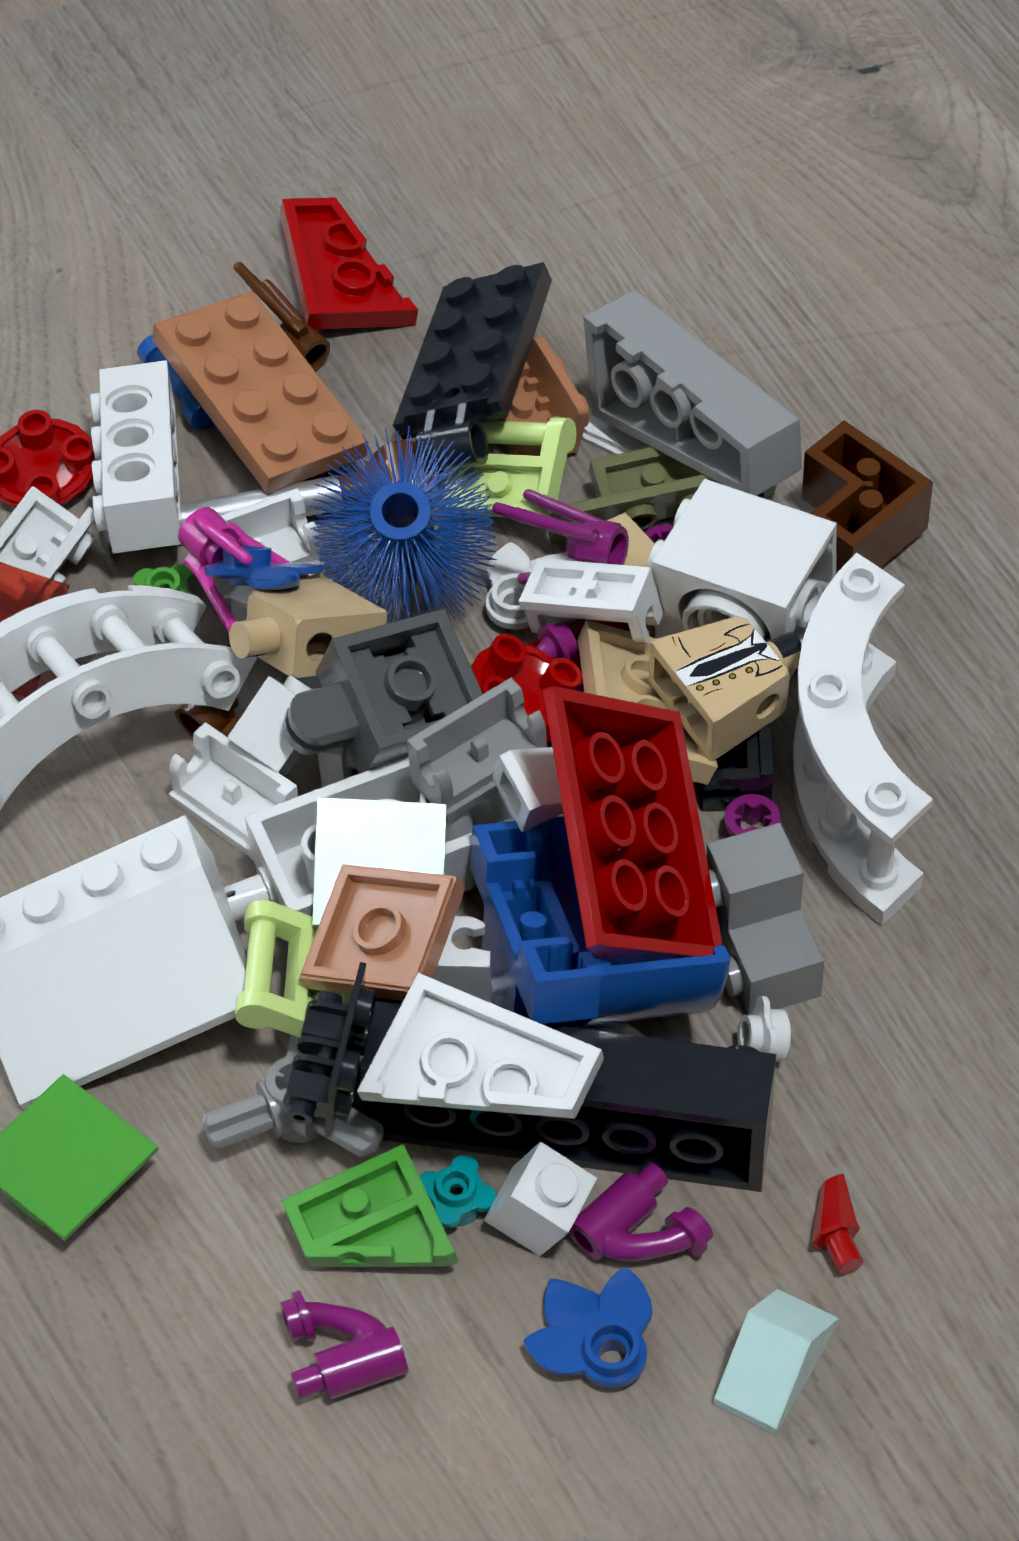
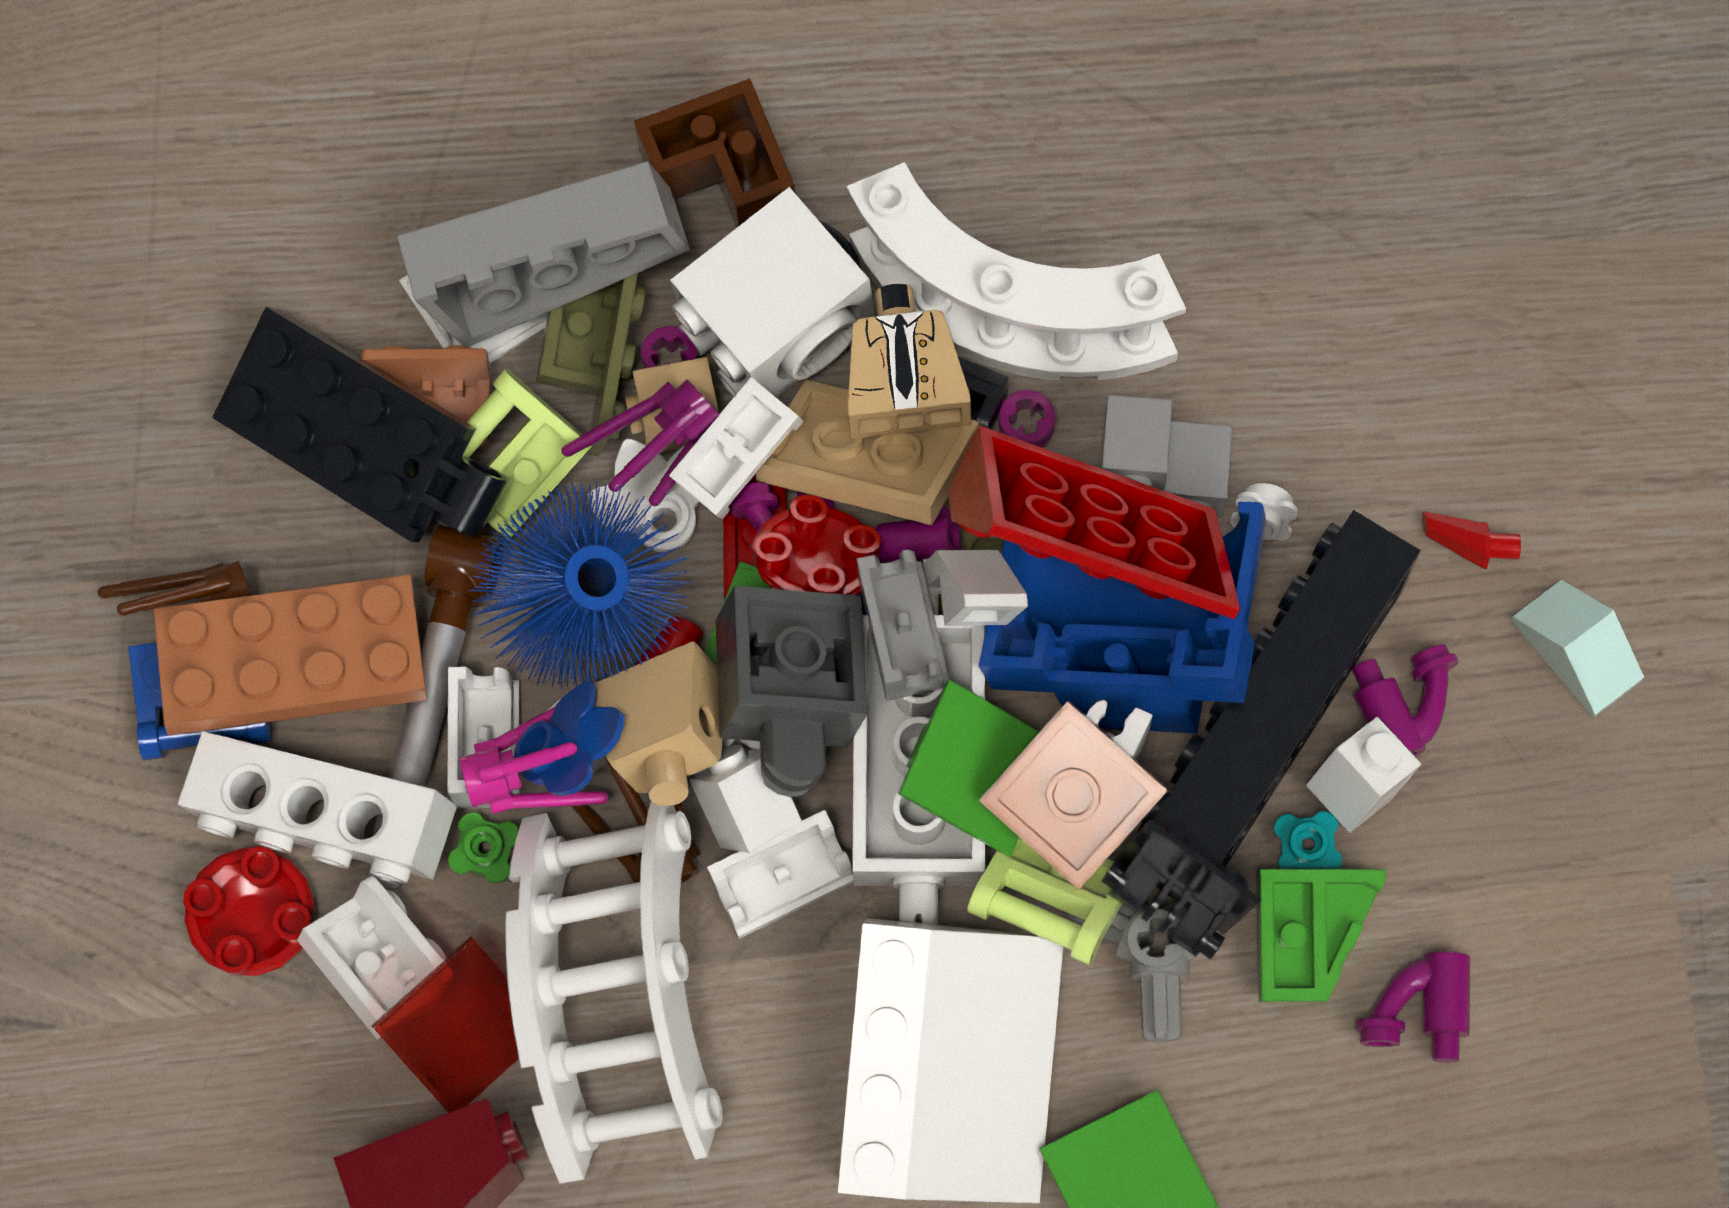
camera: 65 degrees left, 20 degrees up
(335, 271) = (136, 517): red wing -> none
(477, 1057) = (1258, 766): white wing -> none
(589, 1325) = (1481, 785): blue plate -> none

